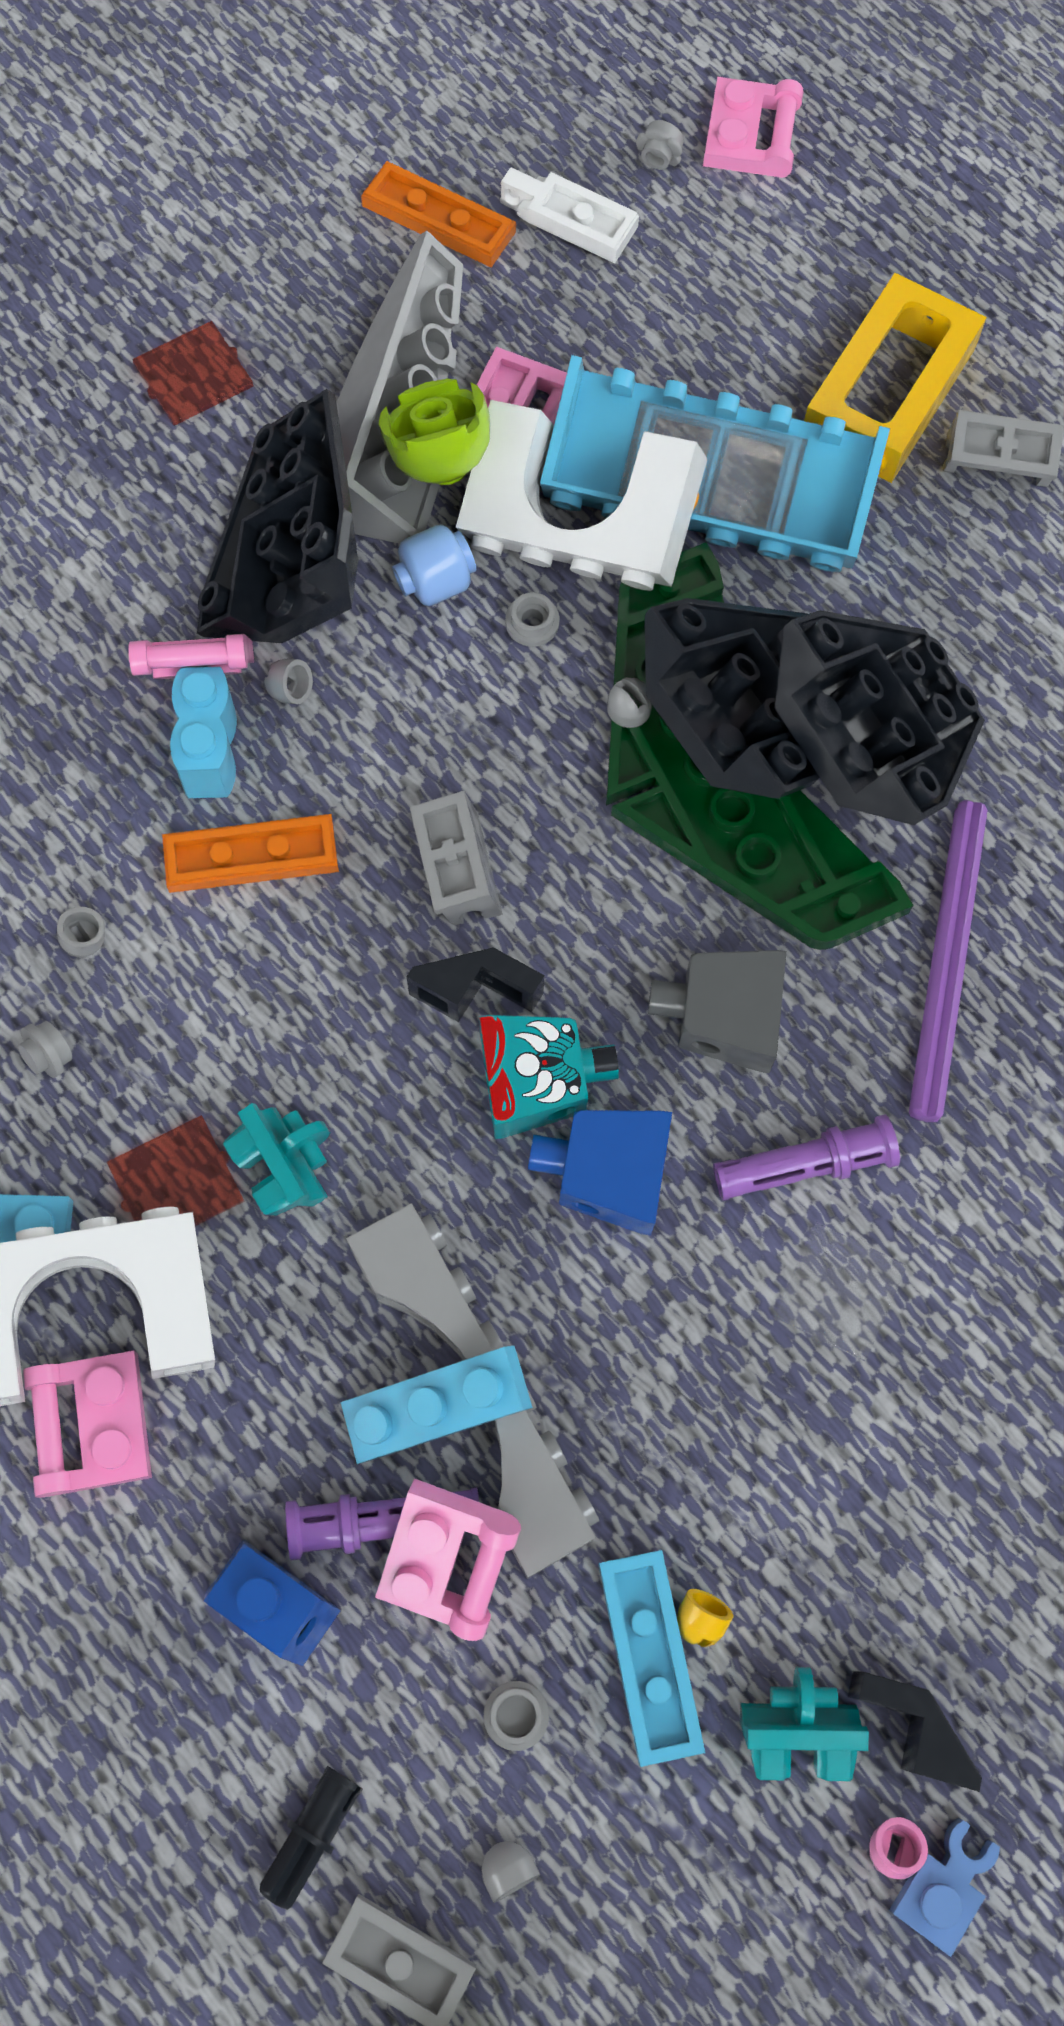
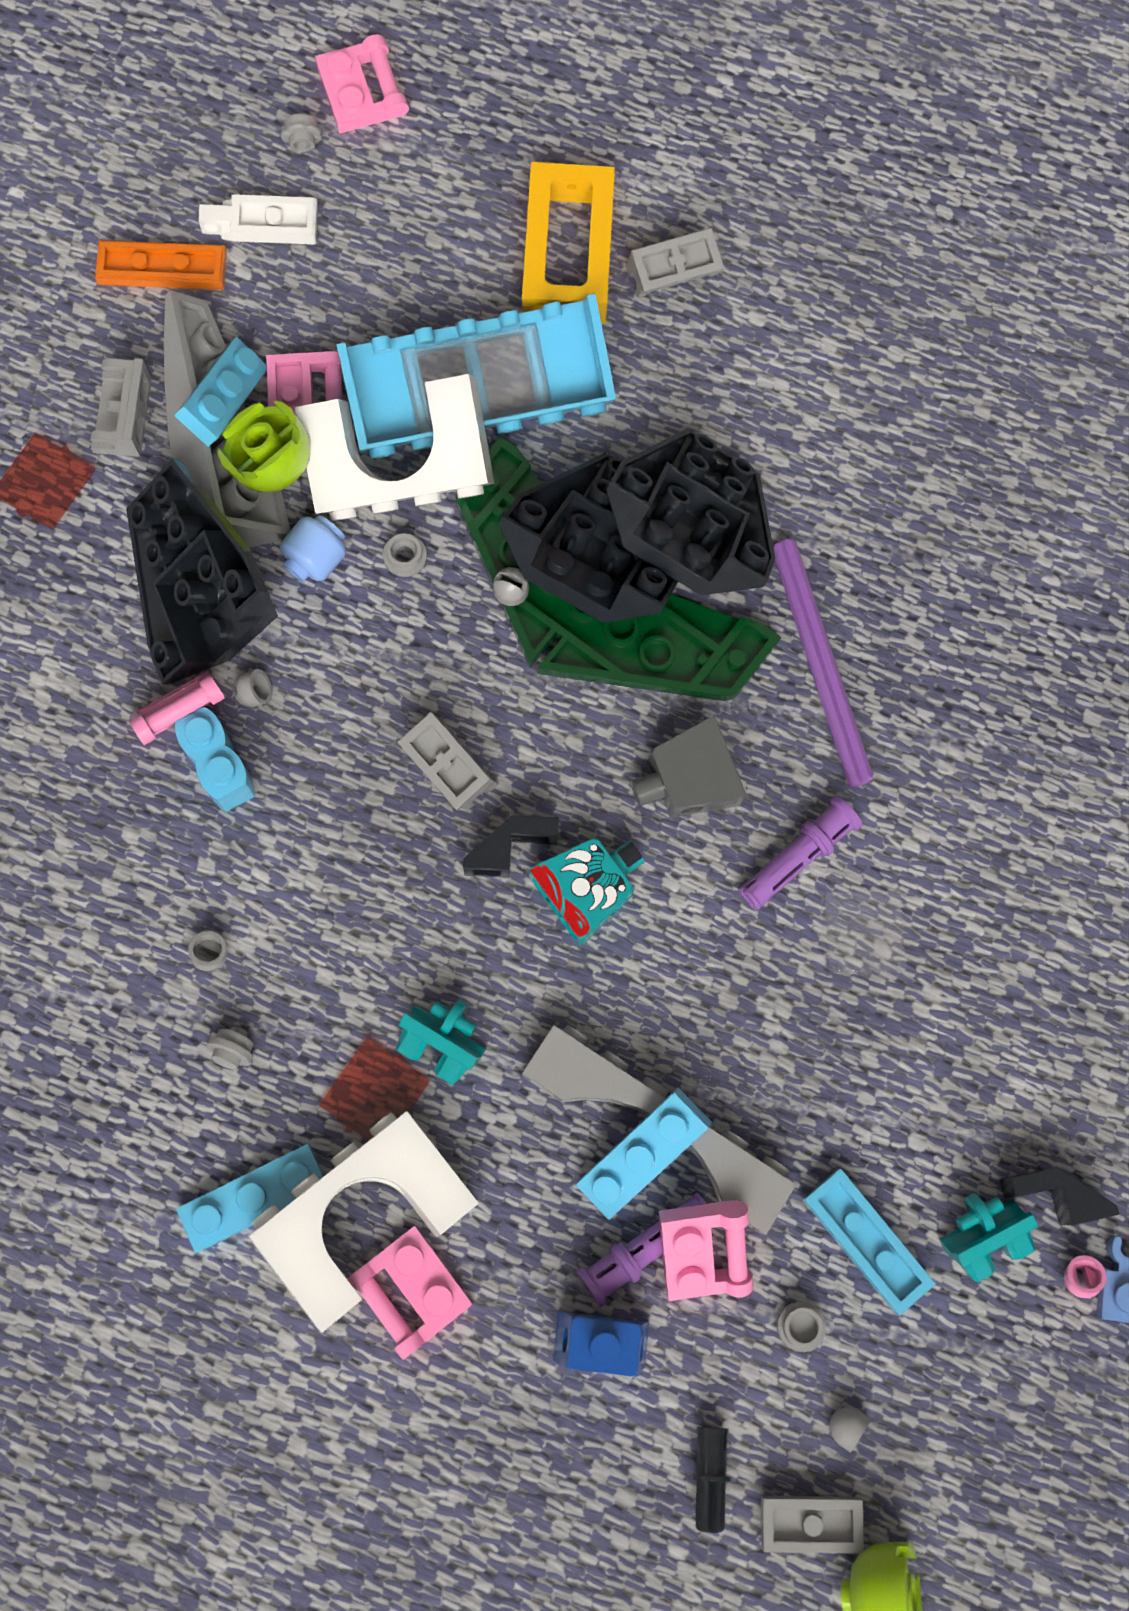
camera: 30 degrees left, 5 degrees up
(250, 853) = (295, 830): orange tile -> none
(316, 335) = (122, 408): none -> light grey hinge
(424, 355) = (221, 391): none -> medium azure plate
(609, 1165) = (670, 927): blue torso -> none
(703, 1618) = (888, 1197): yellow hinge -> none

